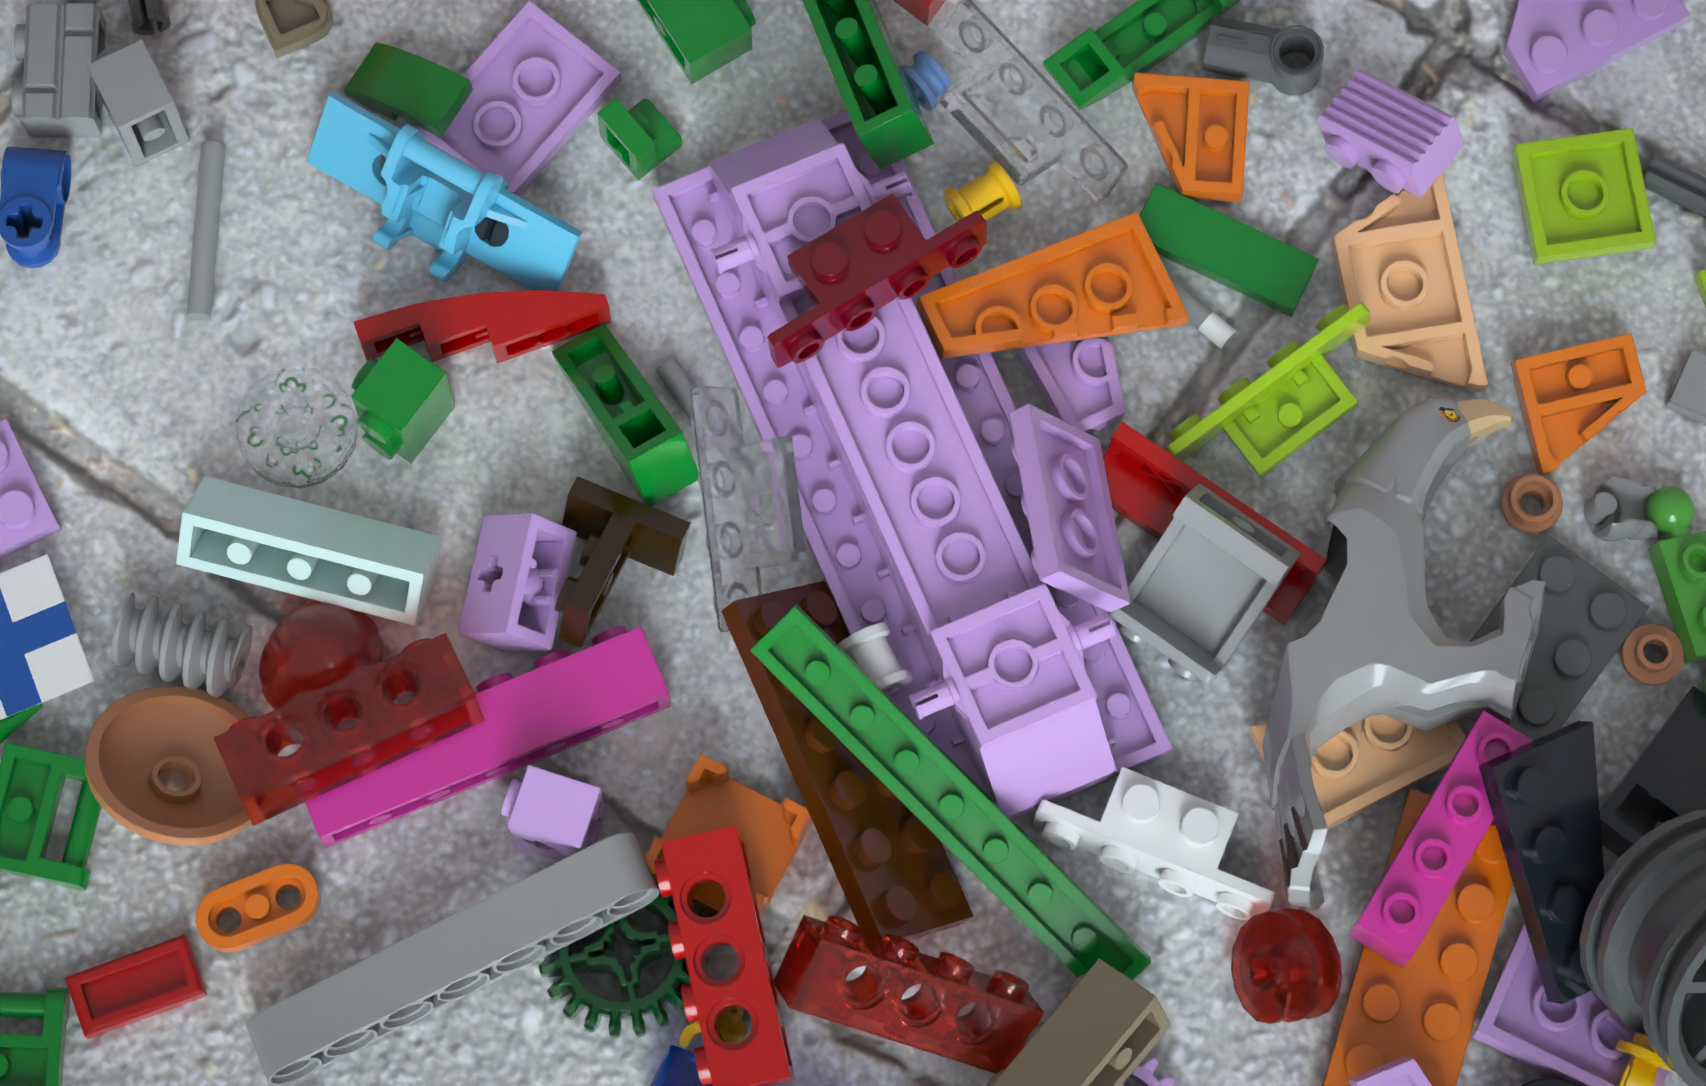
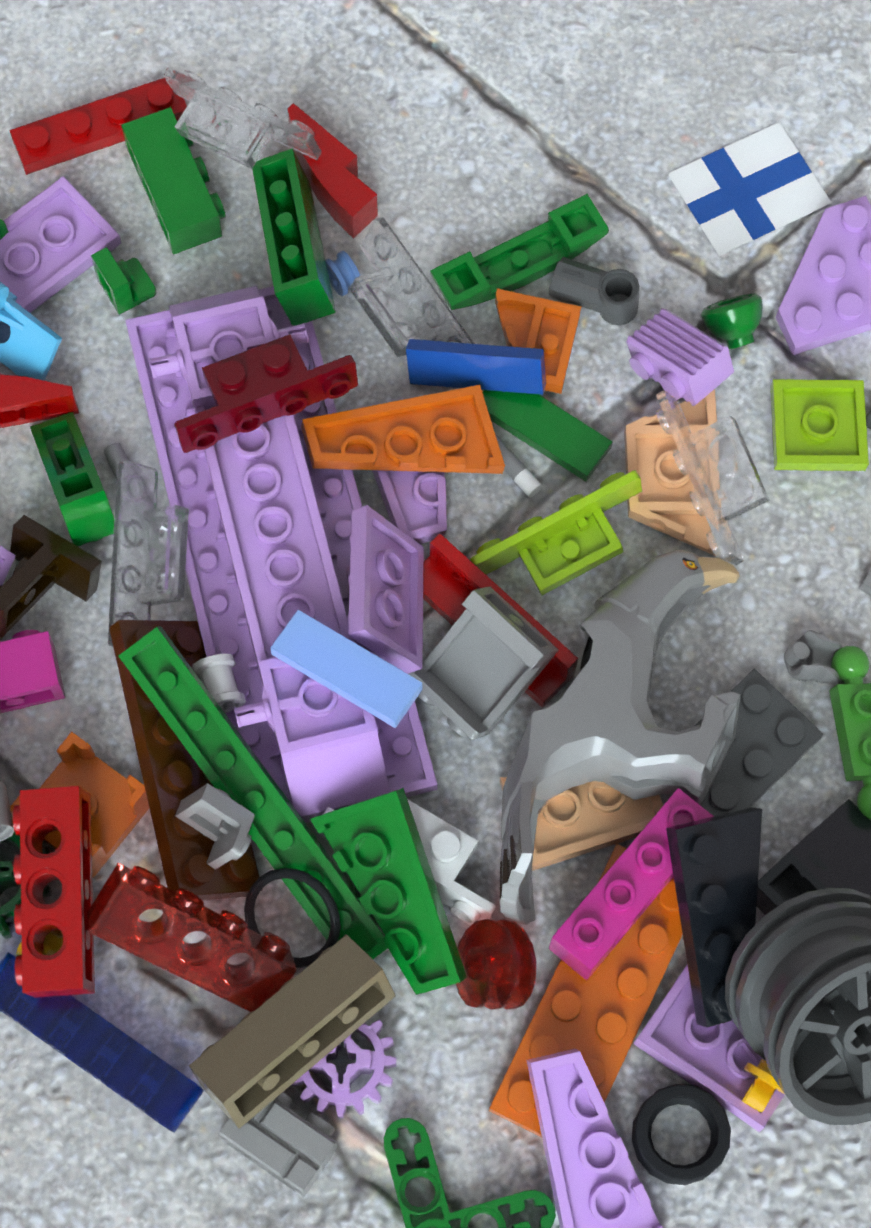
camera: 10 degrees right, 5 degrees down
(916, 840) = (221, 820): none -> light grey bracket
(987, 194) = (372, 360): yellow bush -> none
(1040, 898) = (311, 881): none -> black tyre
(1045, 624) = (346, 668): none -> light blue tile
(1127, 186) = (476, 364): none -> blue tile
(1140, 873) = (389, 867): none -> green wing
(1451, 67) = (734, 319): none -> green brick
(1466, 281) = (719, 470): none -> clear bracket
(1544, 491) = (745, 630): nougat plate -> none
(1575, 395) = (790, 567): orange wing -> none
(1643, 670) = (815, 783): nougat plate -> none

